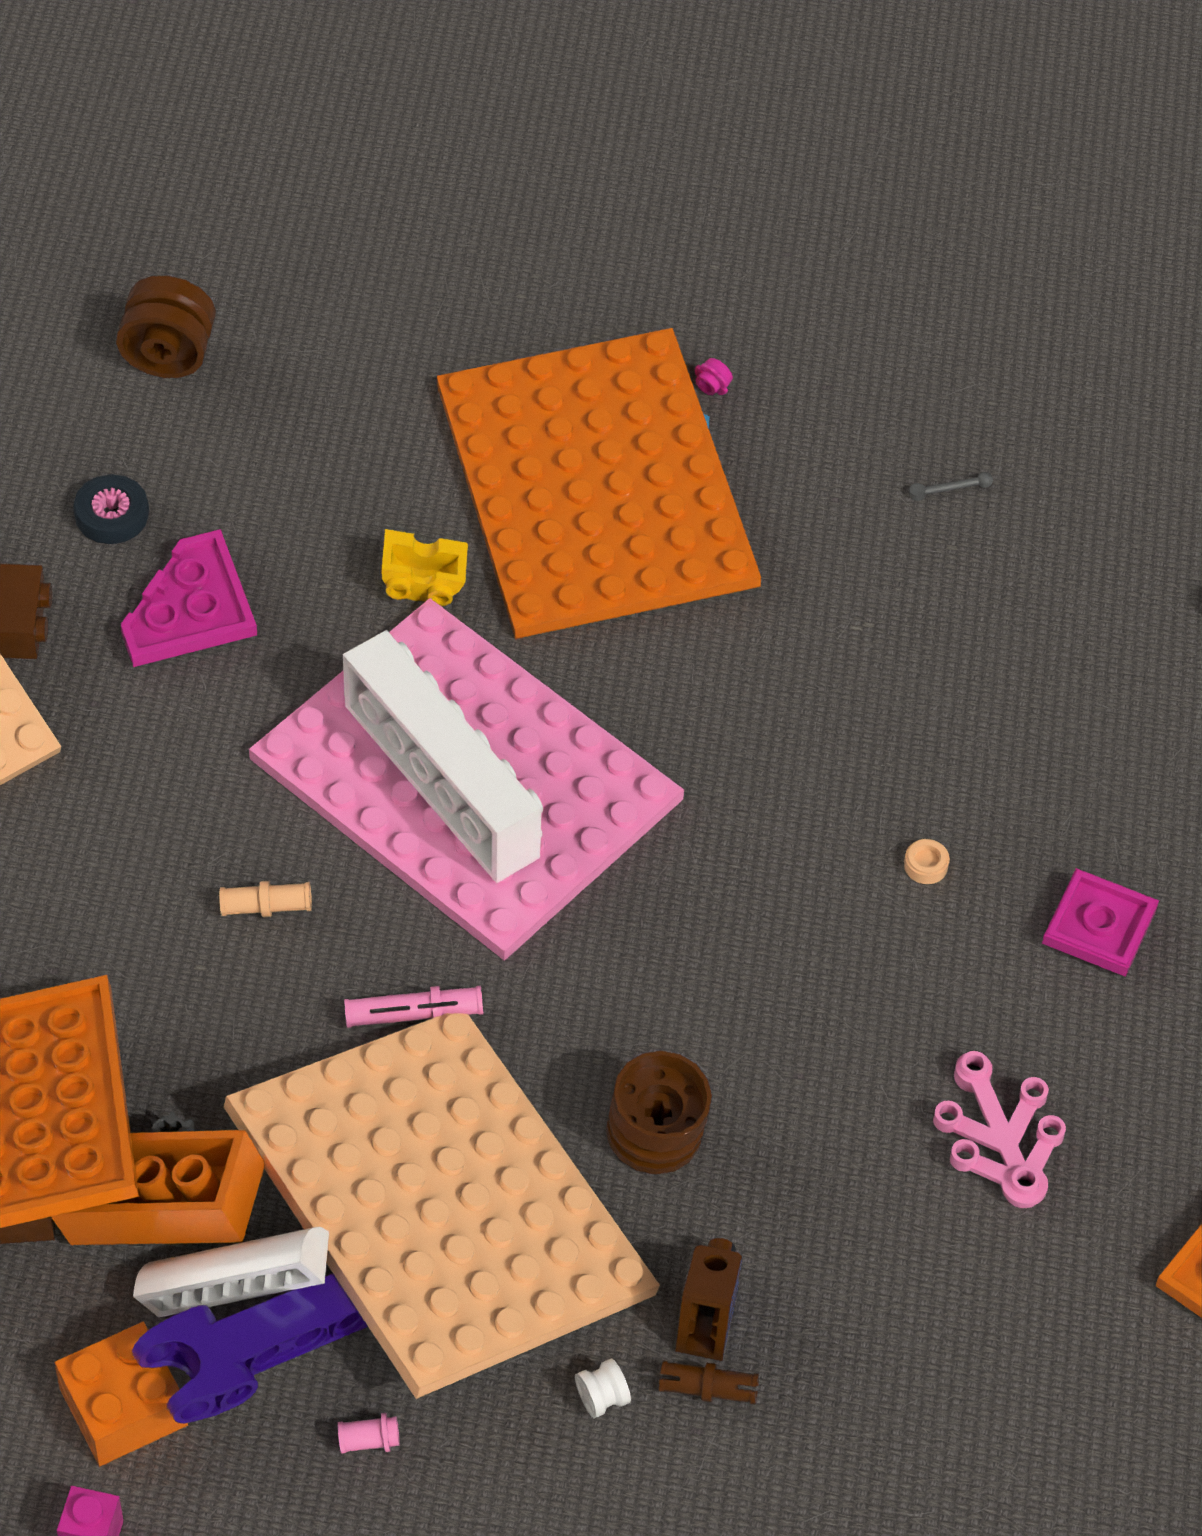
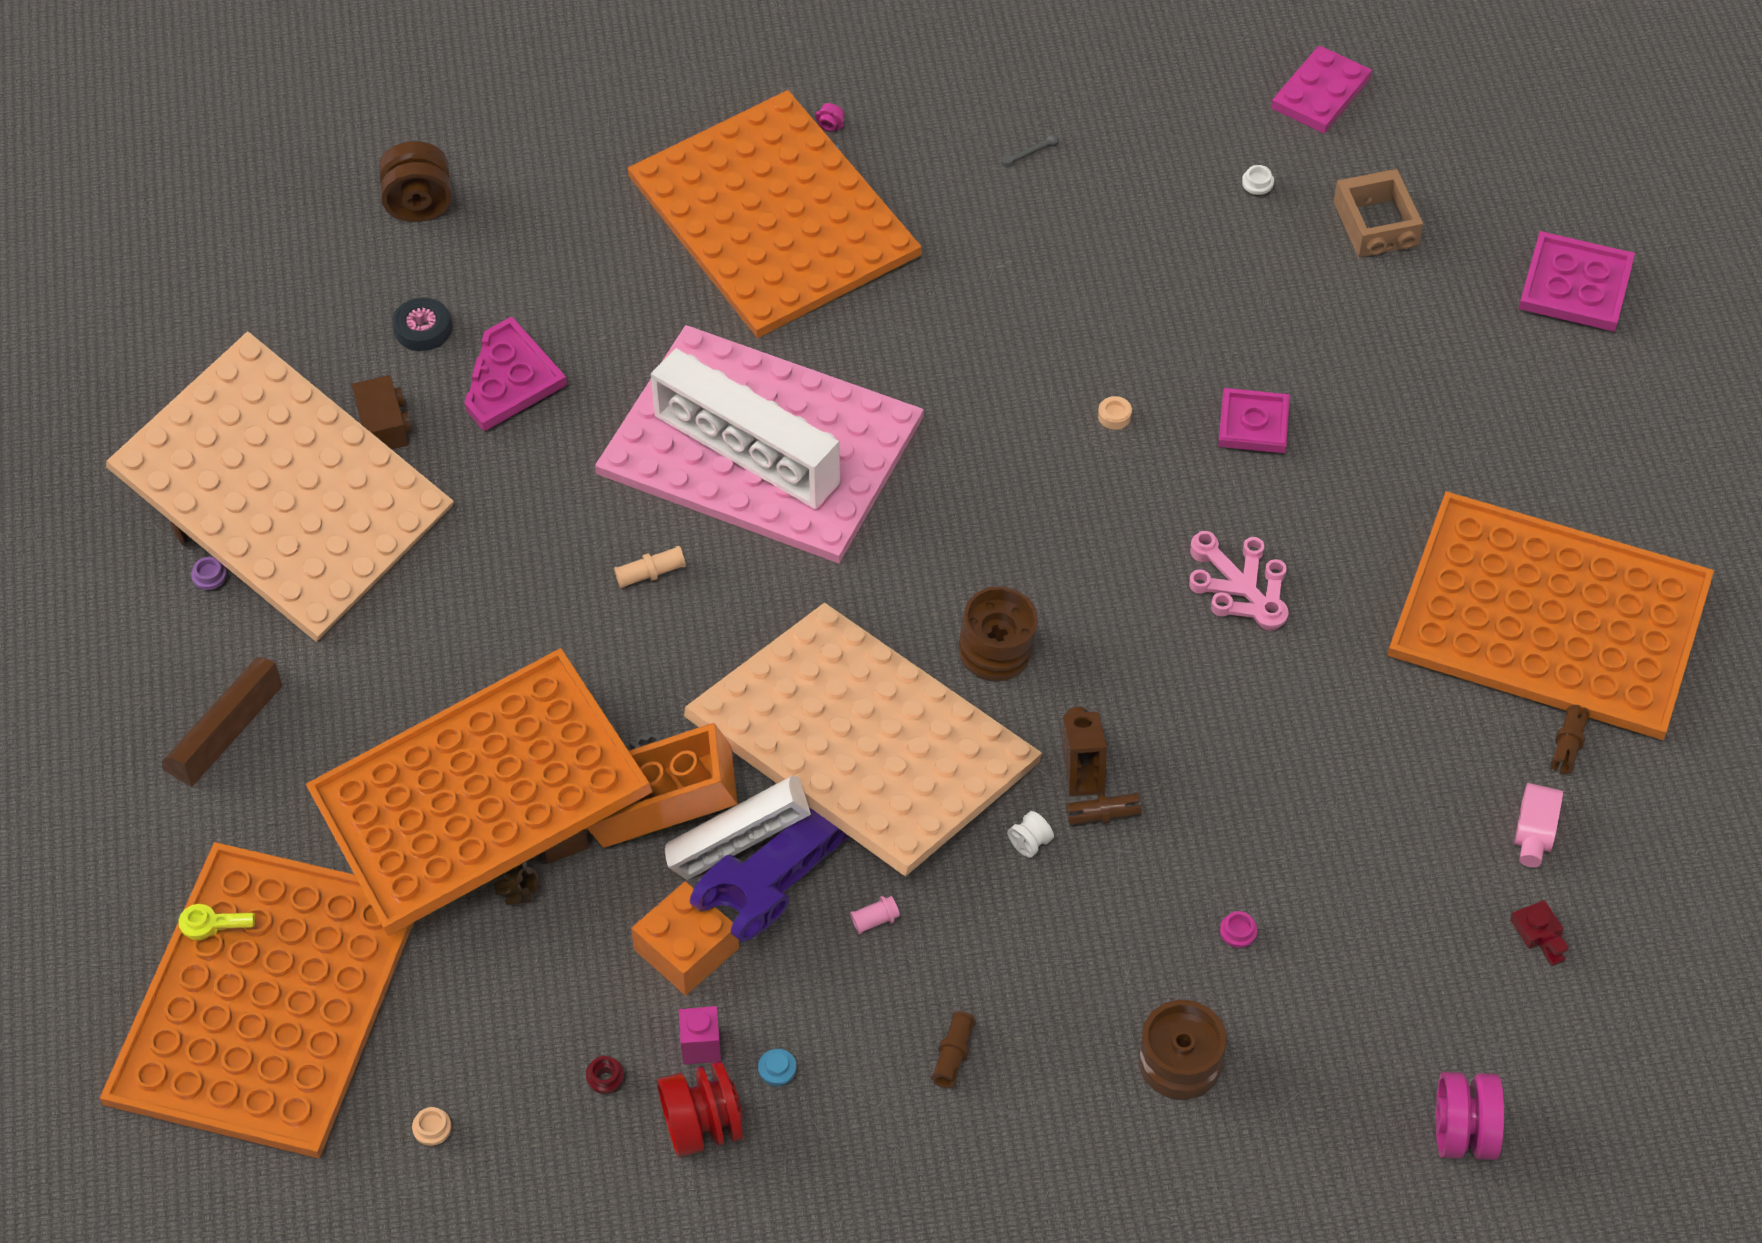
camera: 15 degrees left, 0 degrees up
(358, 1010) = (750, 625): bright pink pin -> none
(422, 569) = (674, 305): yellow cylinder -> none

